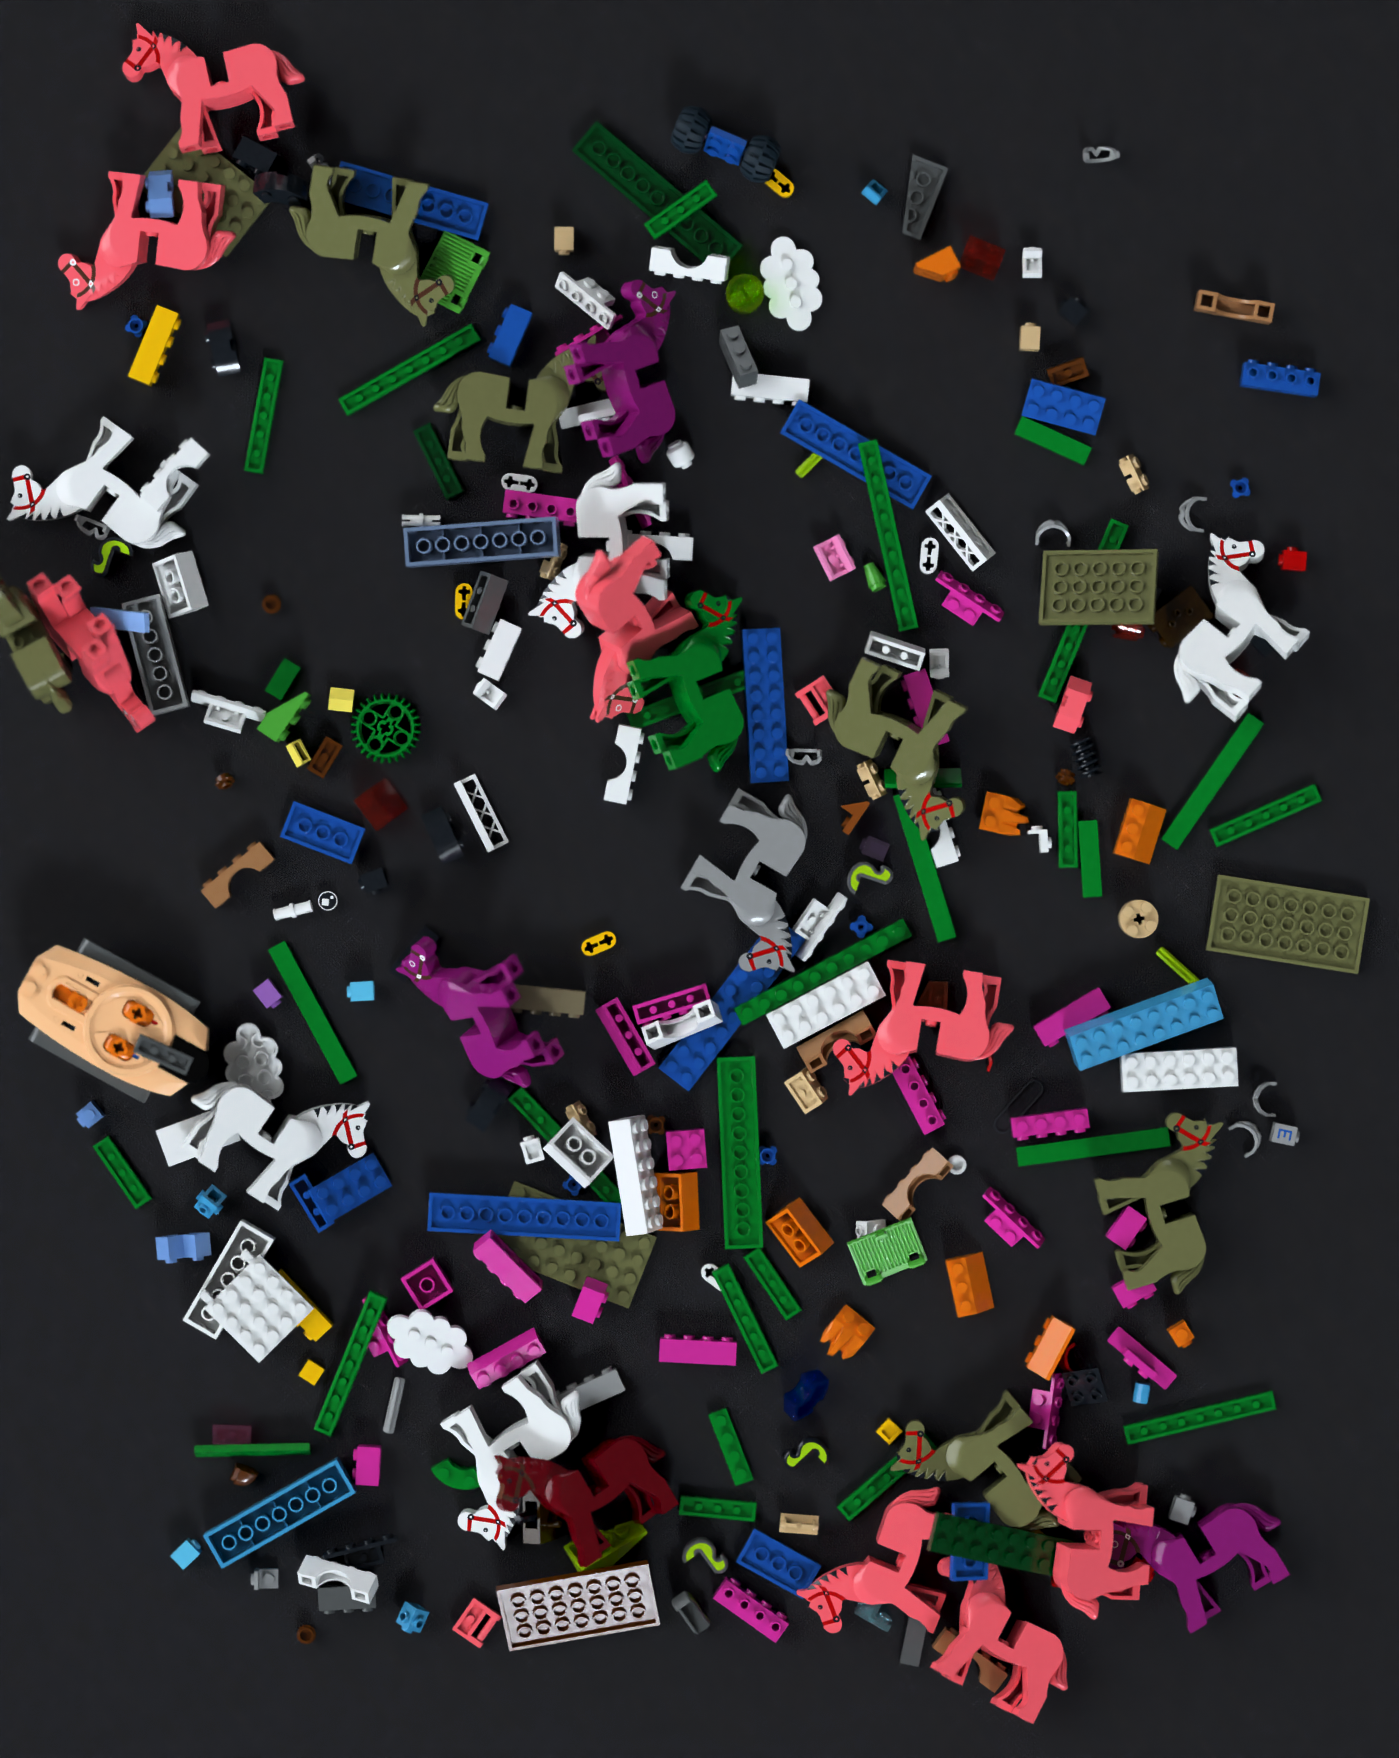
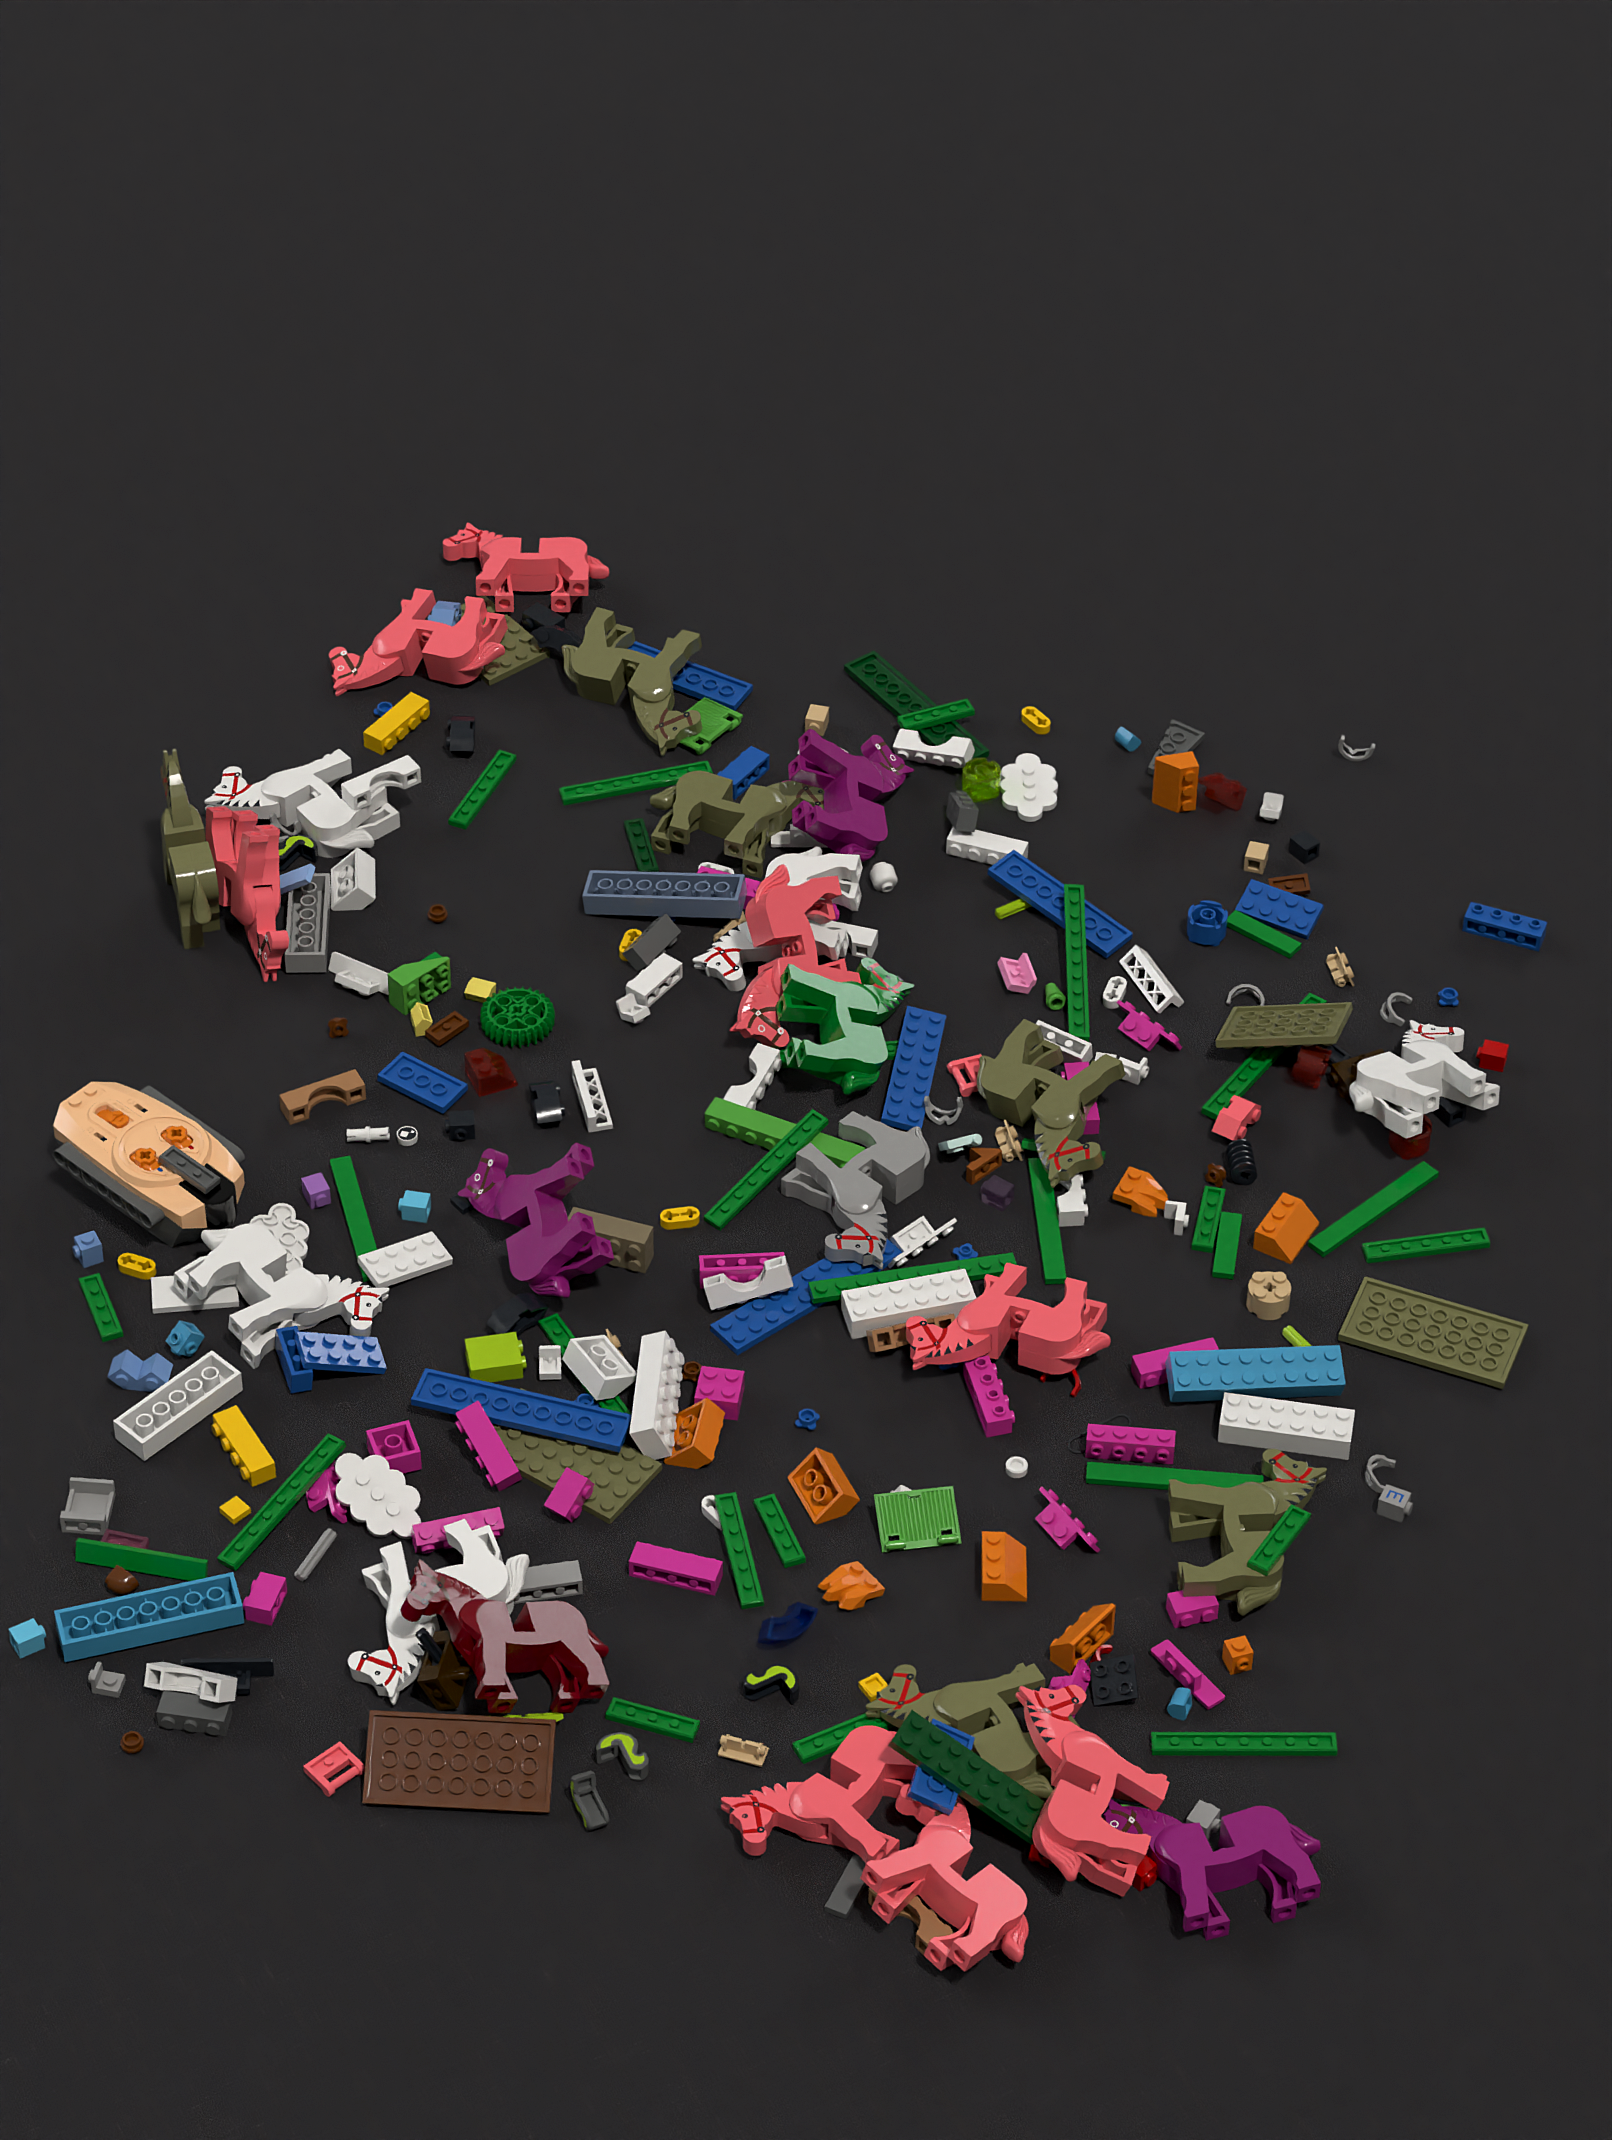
camera: 15 degrees right, 45 degrees down
(136, 1122) = (136, 1266): none -> yellow beam
(188, 1401) = (88, 1506): none -> light grey panel
(258, 1306) = (200, 1423): white plate -> none
(371, 1057) = (405, 1260): none -> white plate
(412, 1617) = (261, 1743): dark azure brick -> none
(455, 1475) = (362, 1624): green brick -> none
(482, 1154) = (495, 1357): none -> lime brick
(625, 1036) = (683, 1287): dark pink brick -> none
(663, 875) = (765, 1170): none -> green tile
(669, 825) = (769, 1130): none -> bright green brick
(693, 129) = (968, 665): black plate -> none
(730, 1446) = (686, 1666): green plate -> none
(740, 1152) = (777, 1411): green plate -> none
(750, 1609) = (661, 1817): dark pink brick -> none
(777, 1562) = (703, 1778): blue plate -> none
(806, 1090) = (866, 1371): tan bracket -> none
(825, 804) = (958, 1143): none -> light aqua plate
(868, 871) = (985, 1210): animal -> none
(871, 1614) = (805, 1846): clear light blue slope -> none
(931, 1166) = (987, 1456): medium nougat arch -> none
(962, 663) = (1135, 1071): none -> white bracket
(1007, 441) = (1207, 923): none -> blue brick
(1126, 1227) = (1197, 1548): dark pink brick -> none
(1199, 1228) = (1278, 1540): none -> green tile
(1241, 309) = (1445, 861): medium nougat arch -> none
(1253, 1129) = (1358, 1514): light grey helmet -> none

